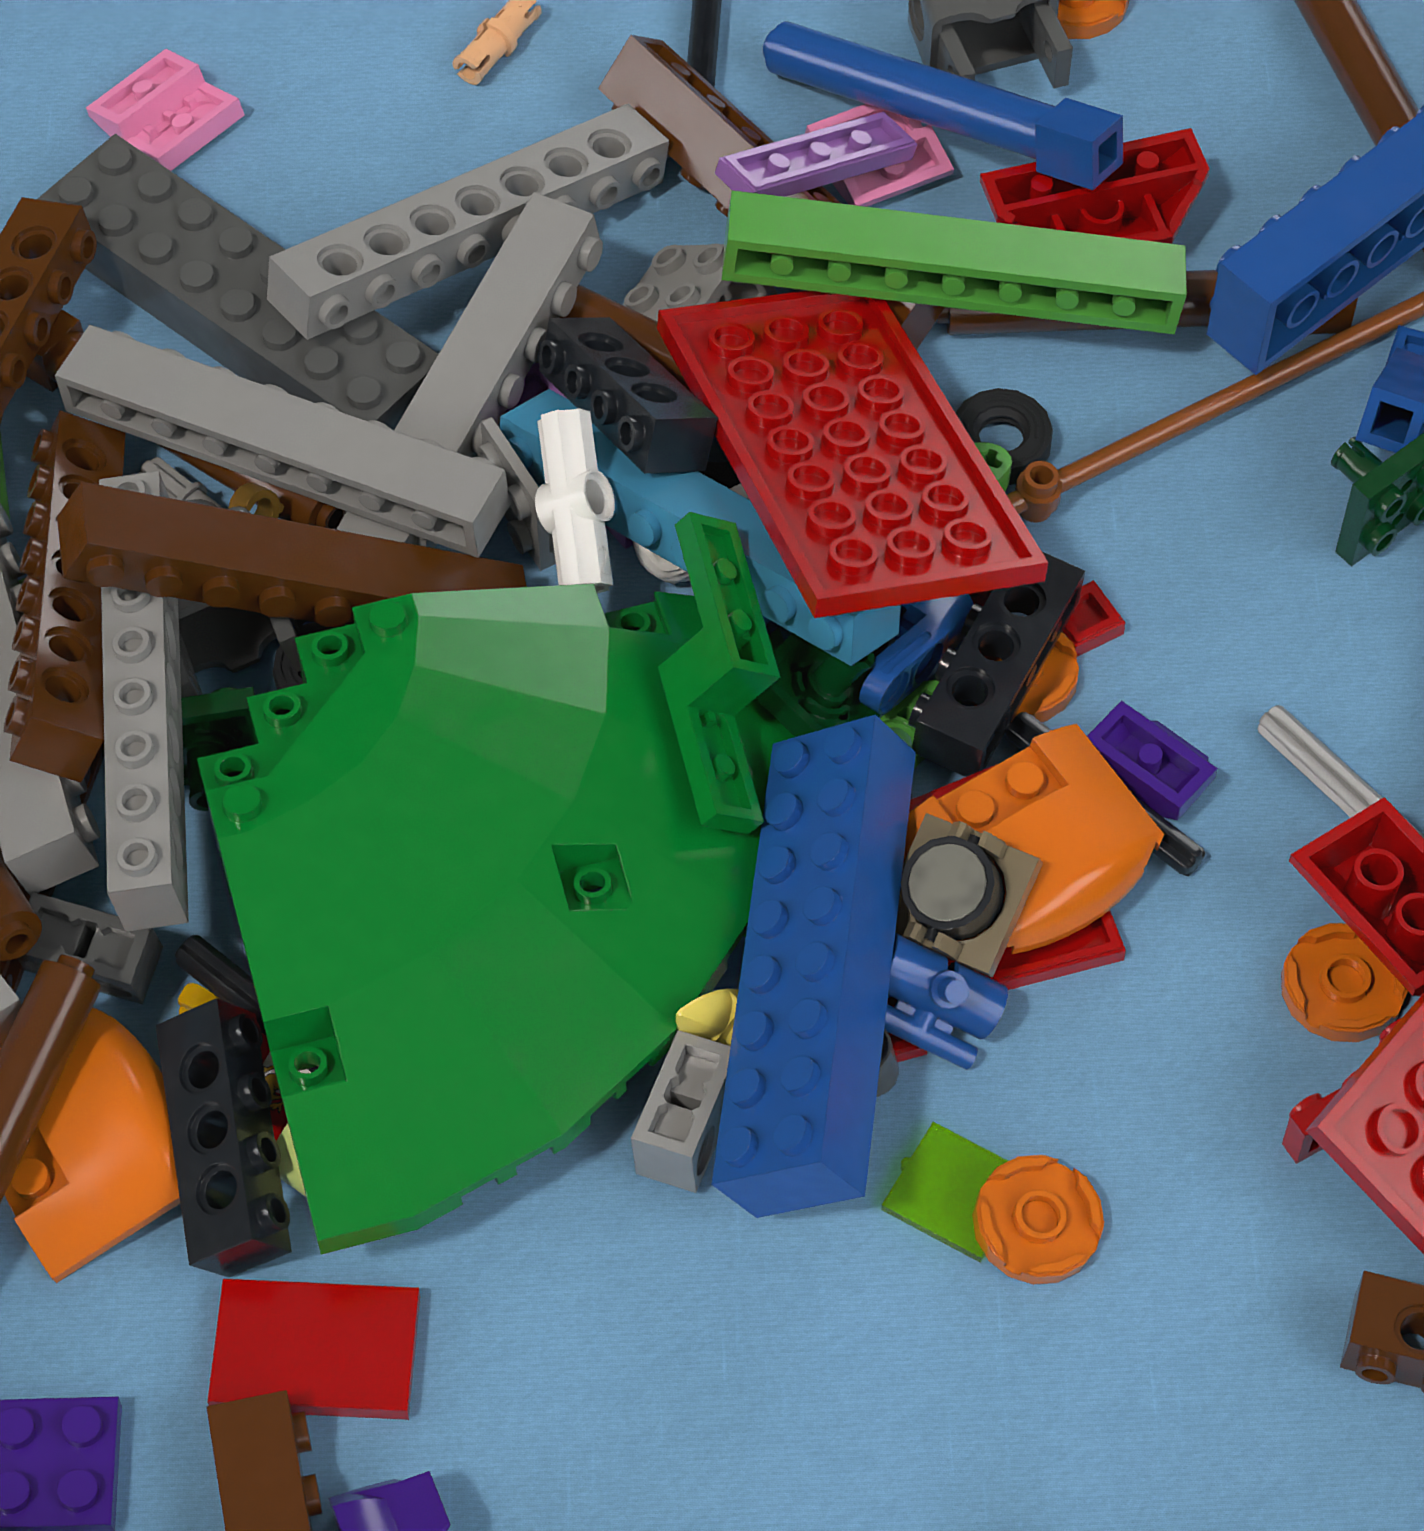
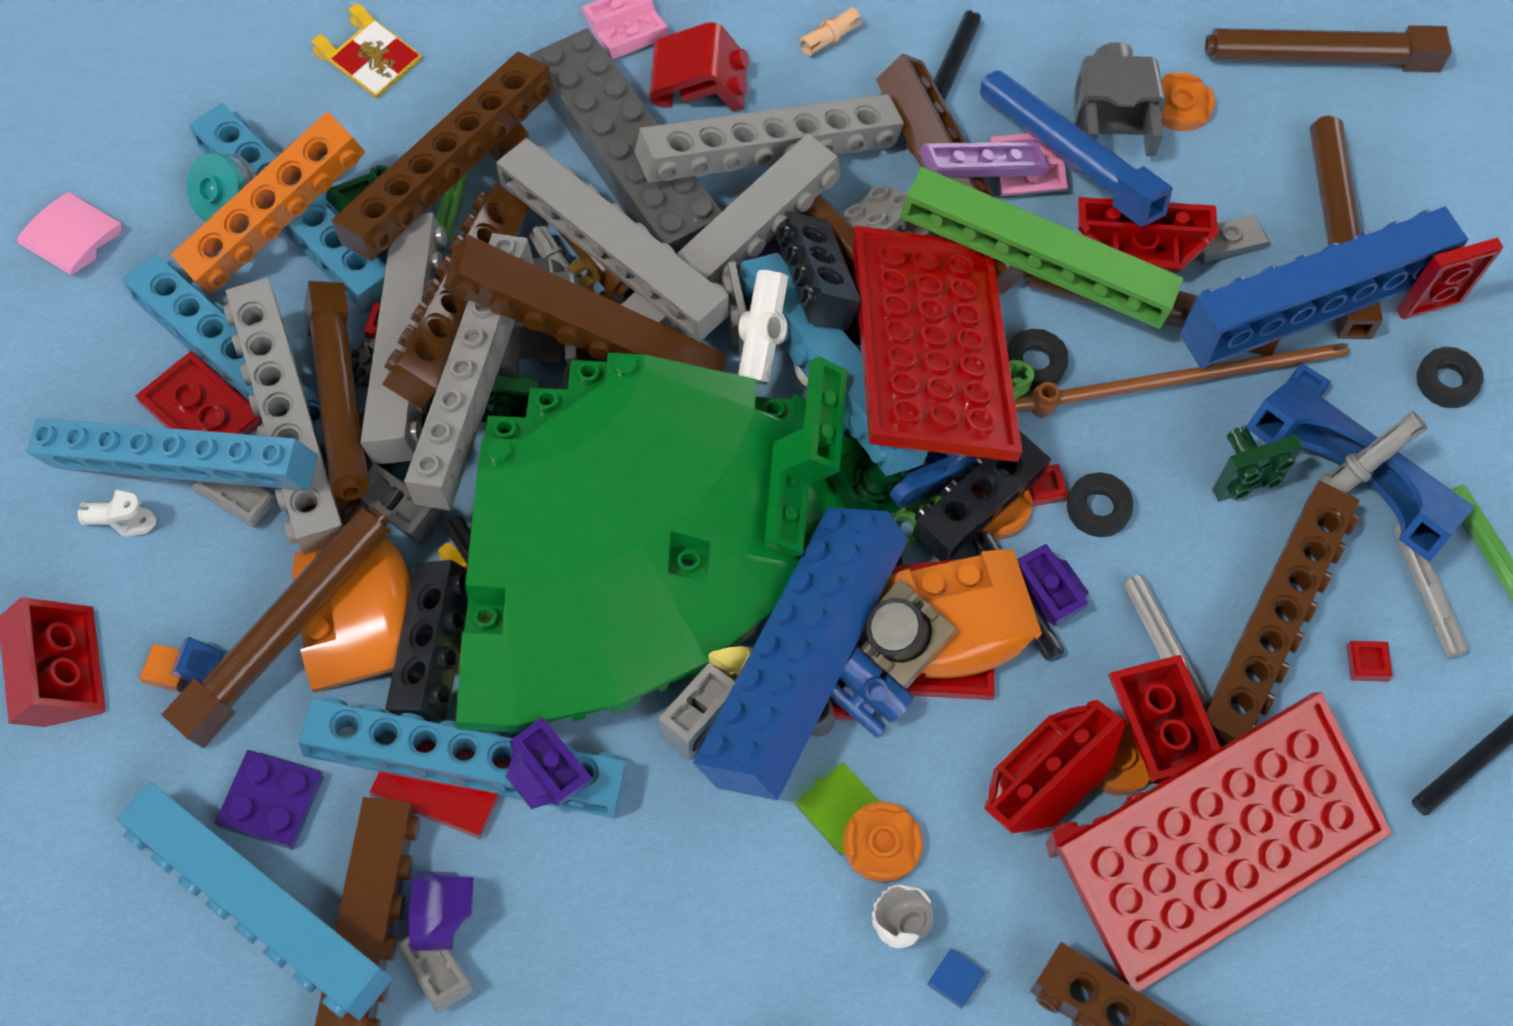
camera: 15 degrees right, 5 degrees up
(314, 142) = (699, 64): none -> red piece
(314, 1322) = (361, 750): none -> dark azure brick
(483, 1265) = (544, 767): none -> dark purple slope
(1111, 1314) = (902, 916): none -> light grey hair
(1172, 653) = (1094, 524): none -> black tyre
(1224, 1383) = (956, 978): none -> blue tile
(1235, 171) = (1235, 238): none -> light grey plate
(1259, 1021) = (1054, 767): none -> red wedge

